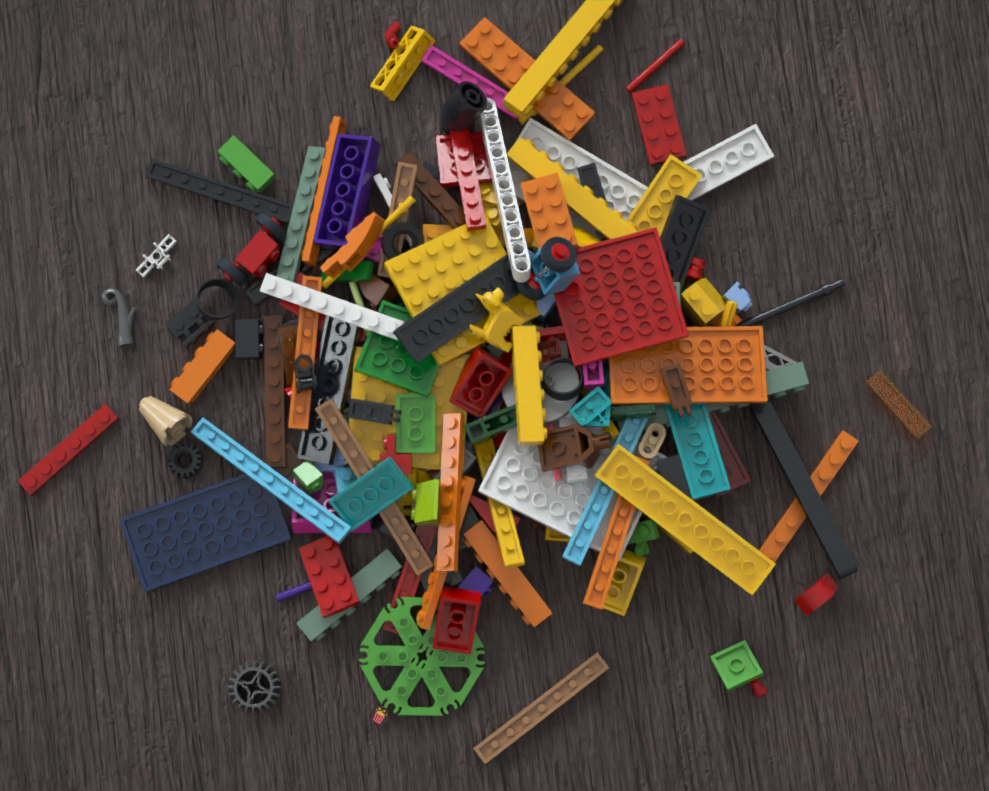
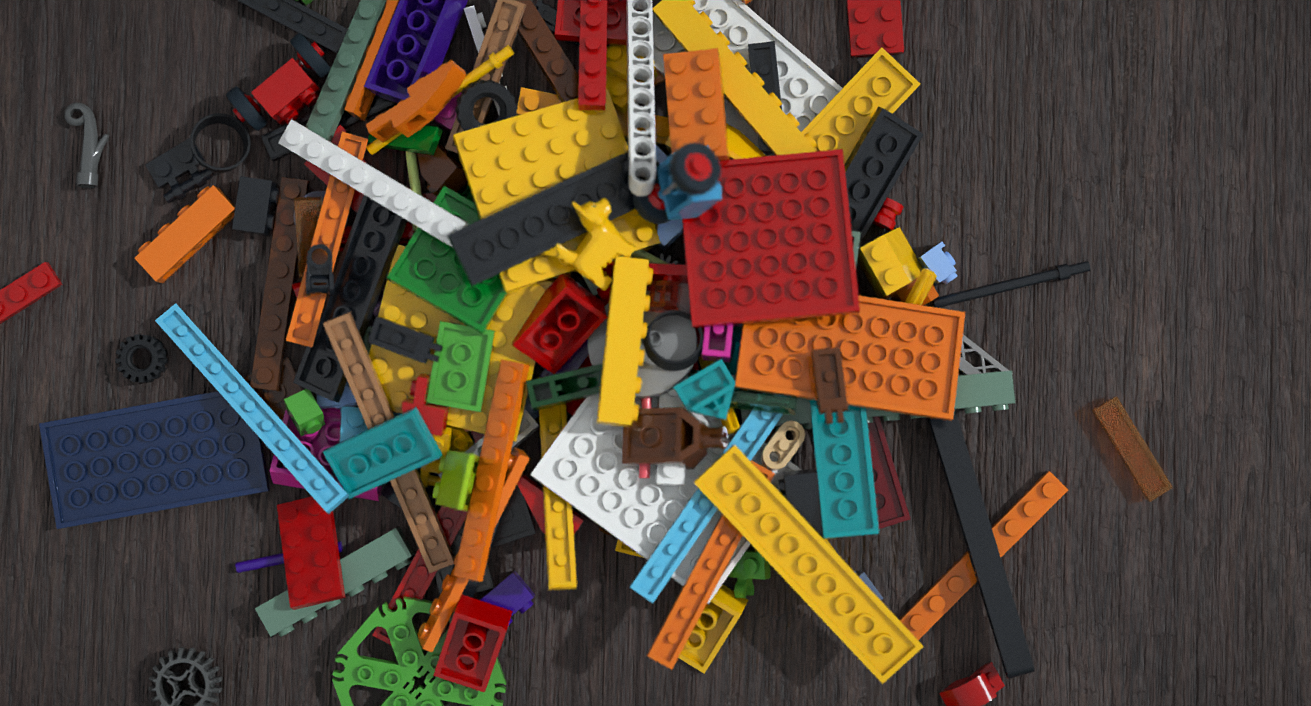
camera: 10 degrees right, 5 degrees up
(162, 254) = (144, 77): white piece -> none
(165, 420) = (122, 299): tan cone -> none
(511, 579) = (562, 606): orange brick -> none
(729, 160) = (961, 68): white plate -> none

